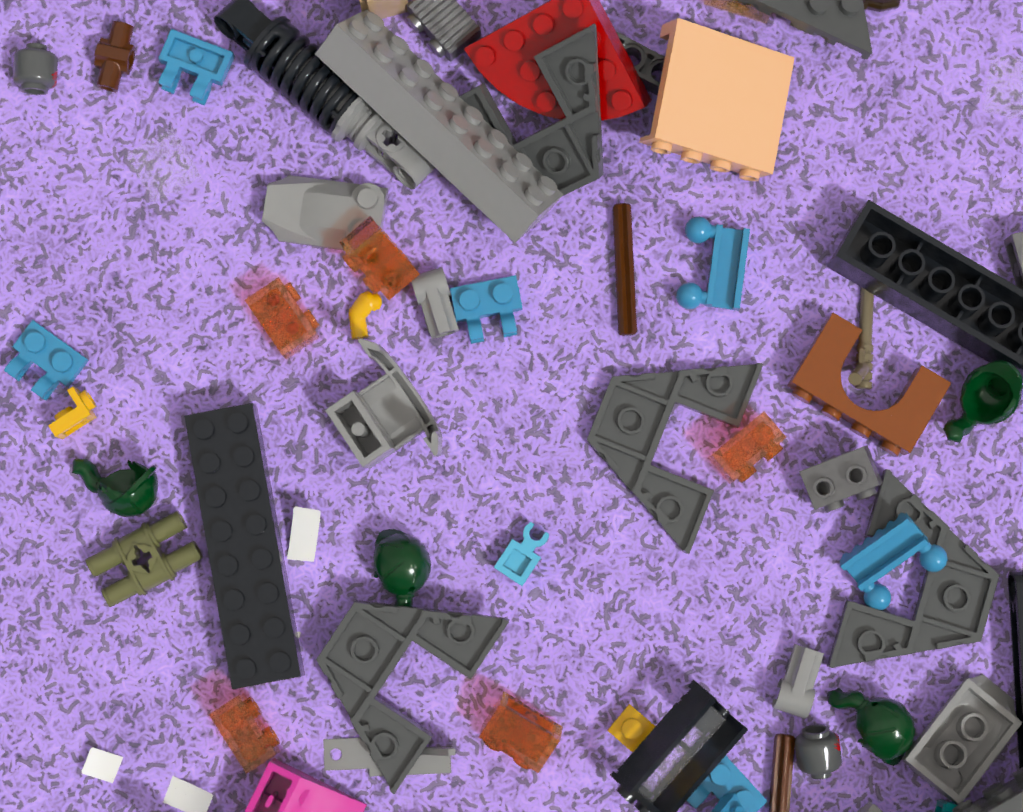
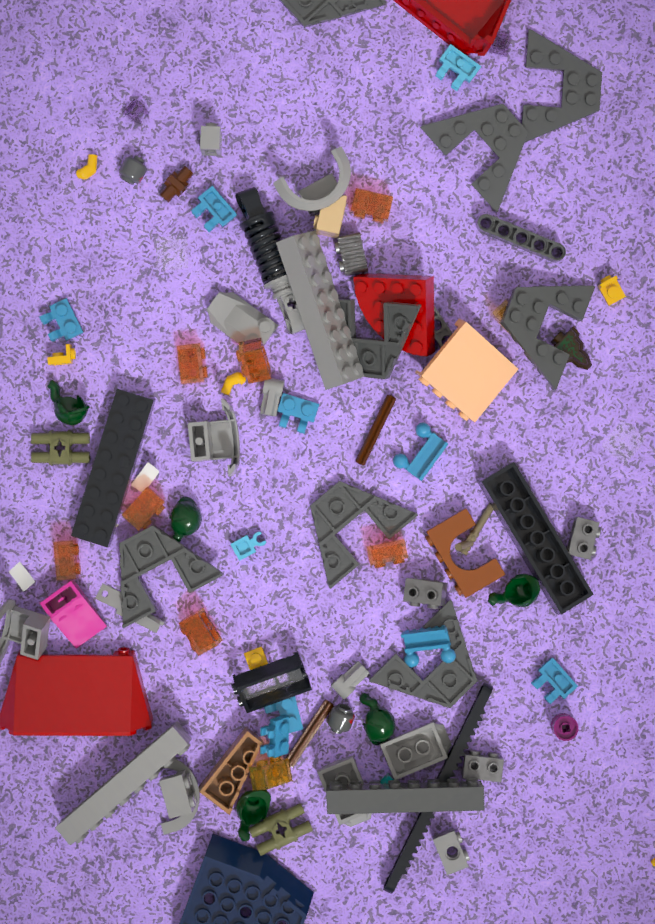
camera: 25 degrees right, 5 degrees up
(327, 584) = (144, 508): none -> clear orange brick

